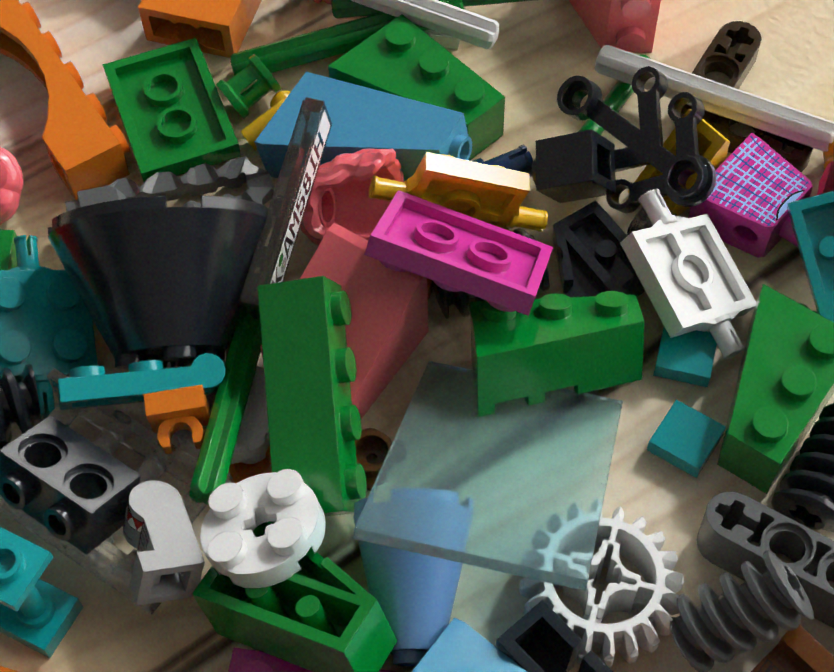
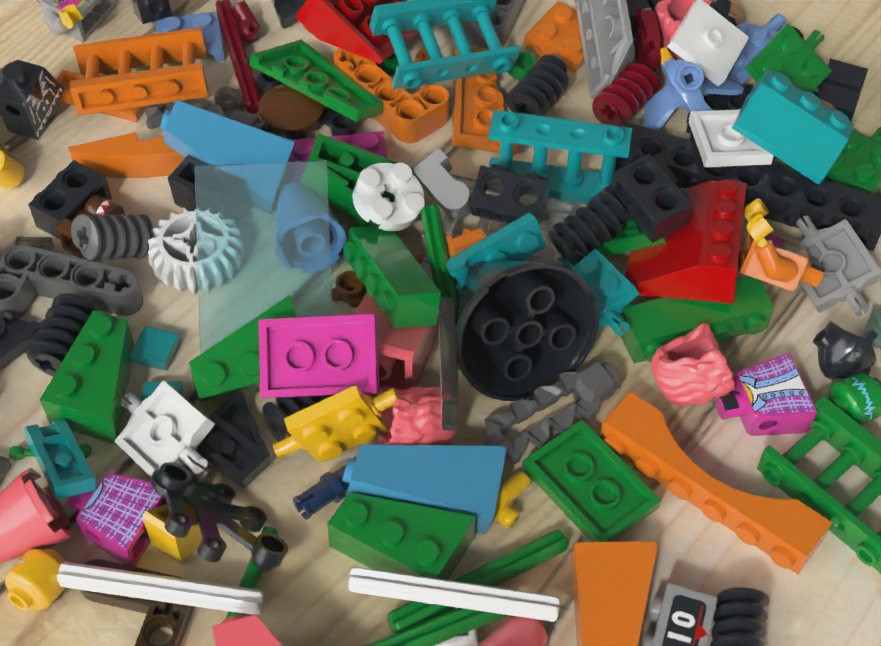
camera: 160 degrees right, 5 degrees down
(234, 86) = (534, 517): green bush -> none
(575, 166) = (261, 493): black brick -> none

